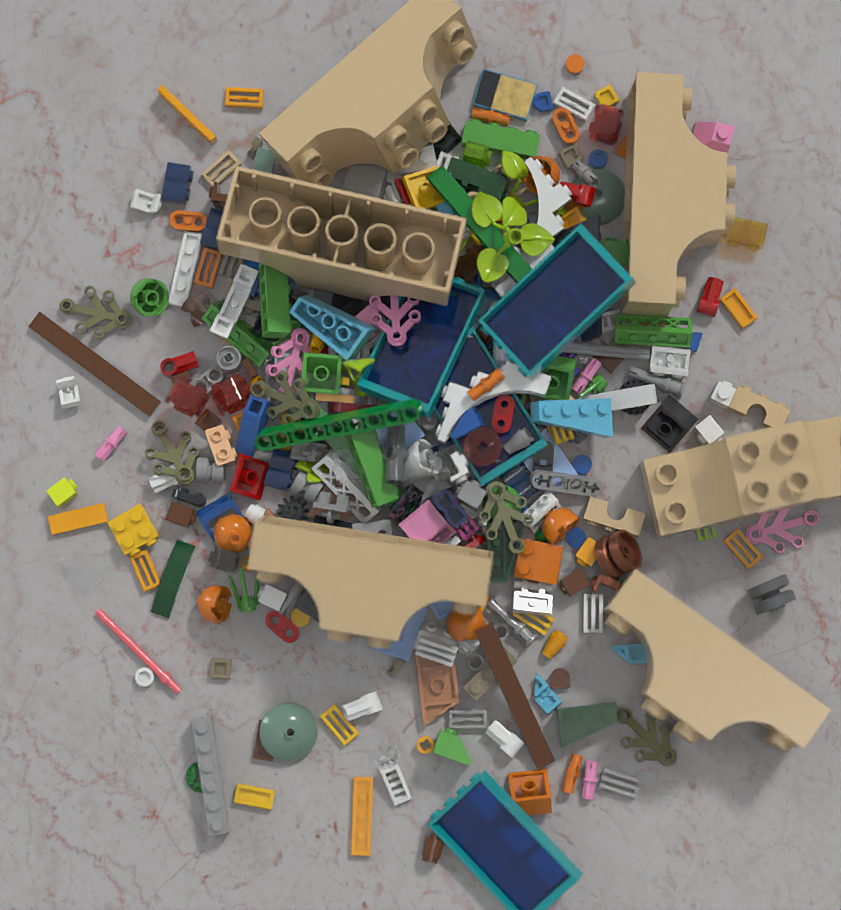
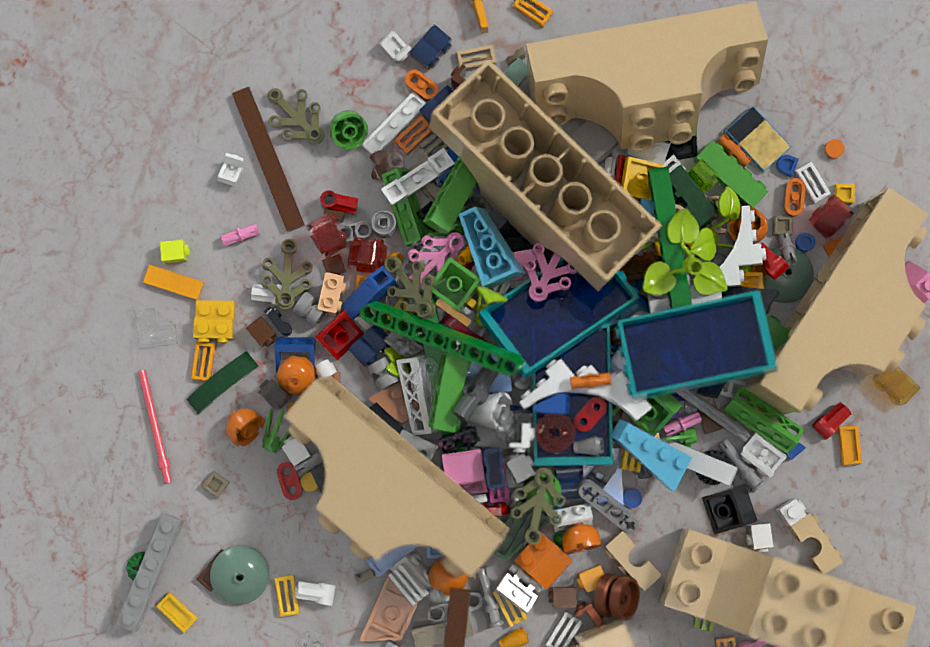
camera: 25 degrees right, 0 degrees up
(144, 677) = (146, 452): white tile -> none
(249, 367) = (396, 242): reddish brown tile -> none
(300, 511) = (365, 391): black gear -> none
(341, 505) = (389, 397): light grey hips -> none
(576, 537) = (588, 558): blue tile -> none

